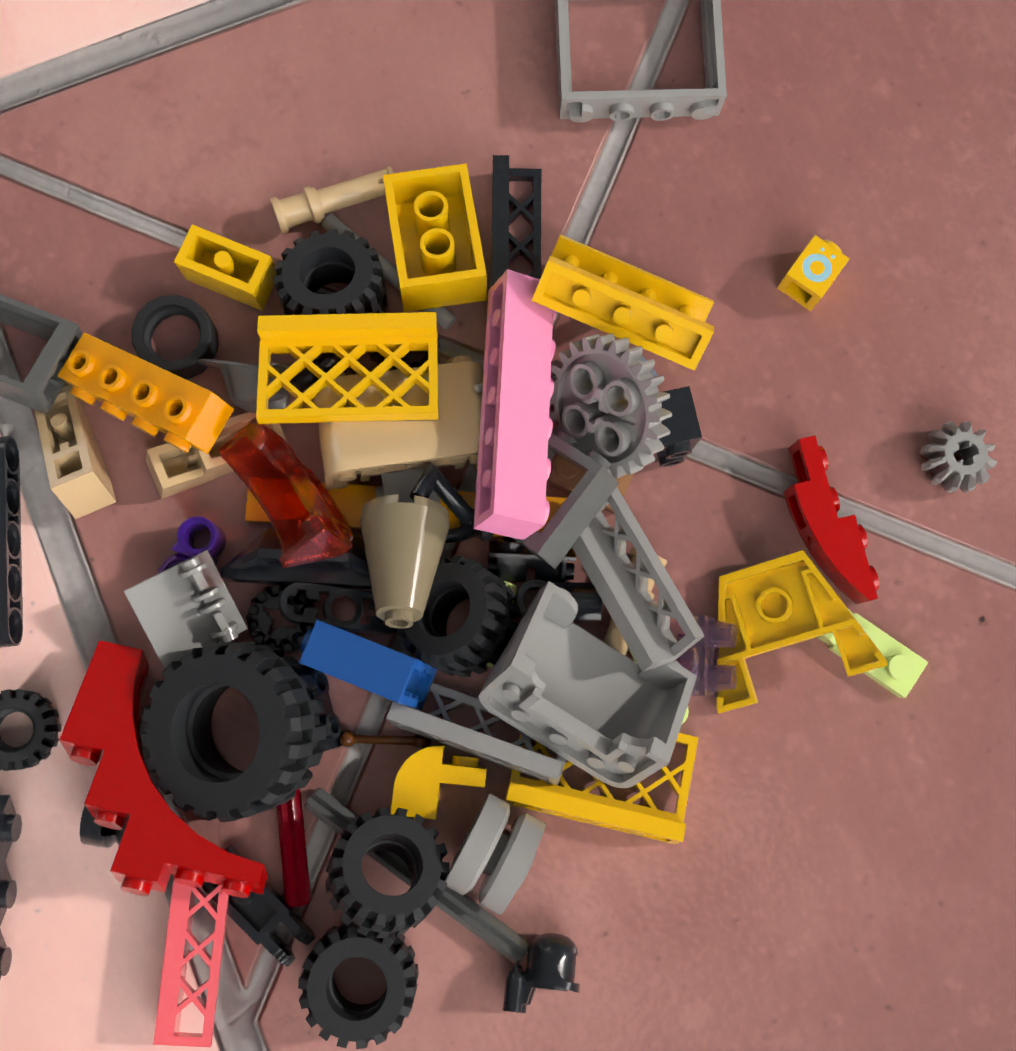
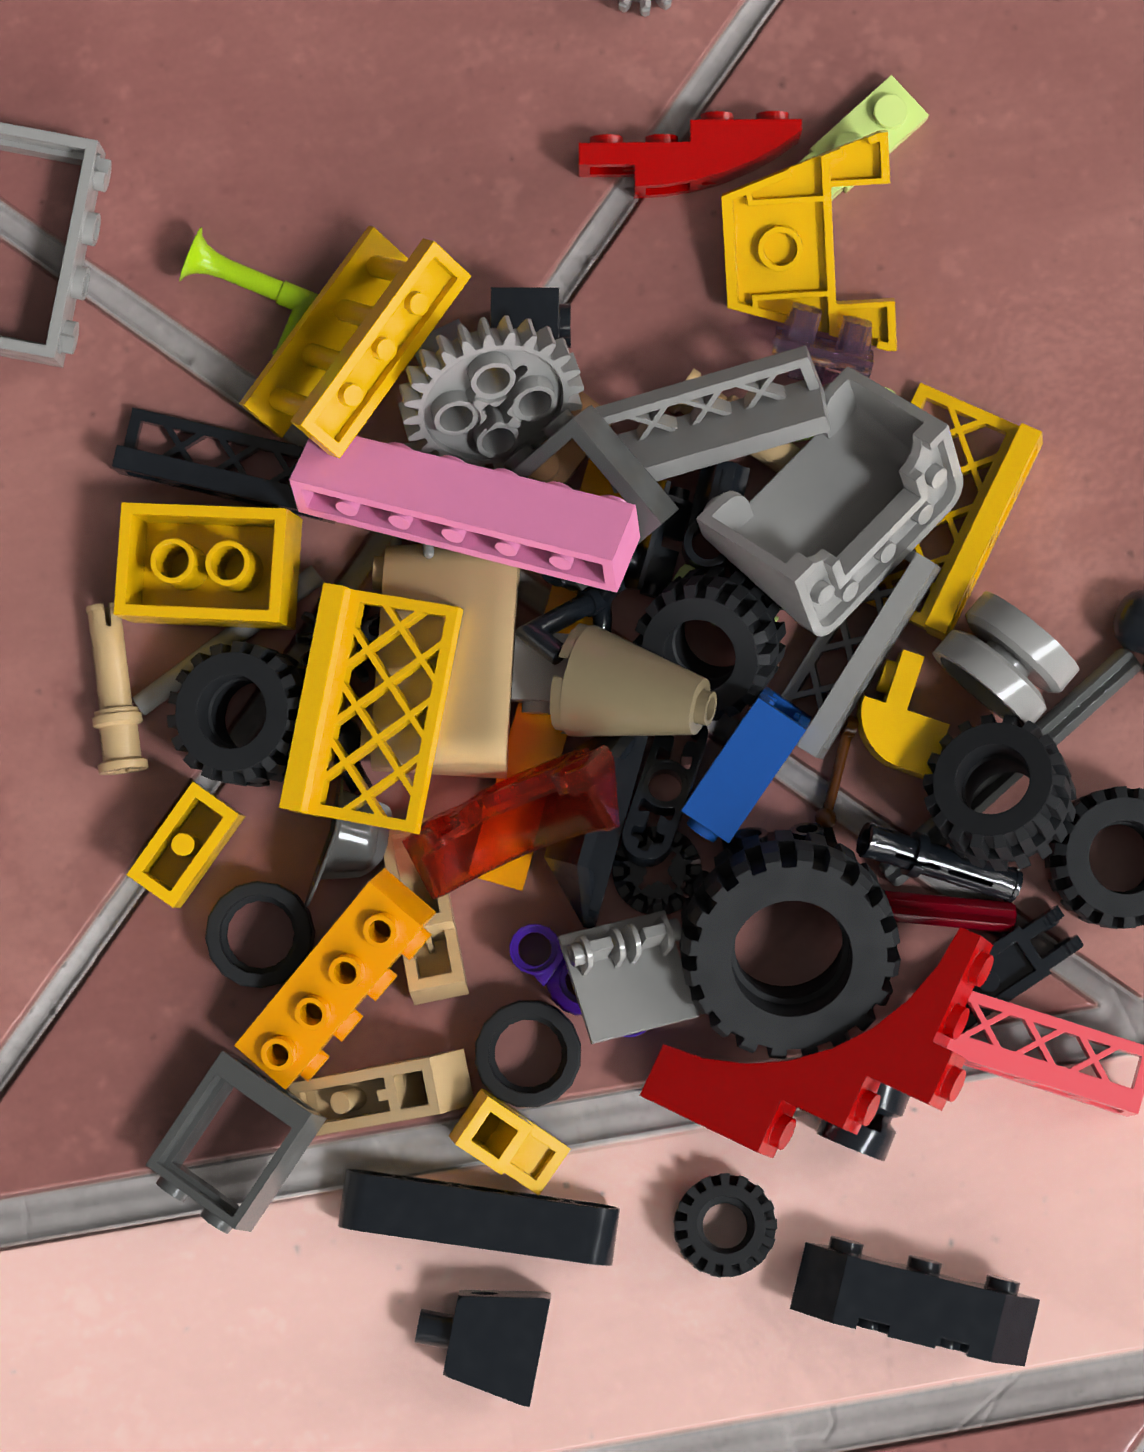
camera: 70 degrees left, 5 degrees up
(50, 546) = (508, 1142): none -> yellow brick
(95, 531) = (495, 1080): none -> black tyre
(327, 819) = (919, 855): none -> black pin
(660, 189) = (205, 260): none -> lime piece
(813, 272) = (358, 86): yellow brick -> none

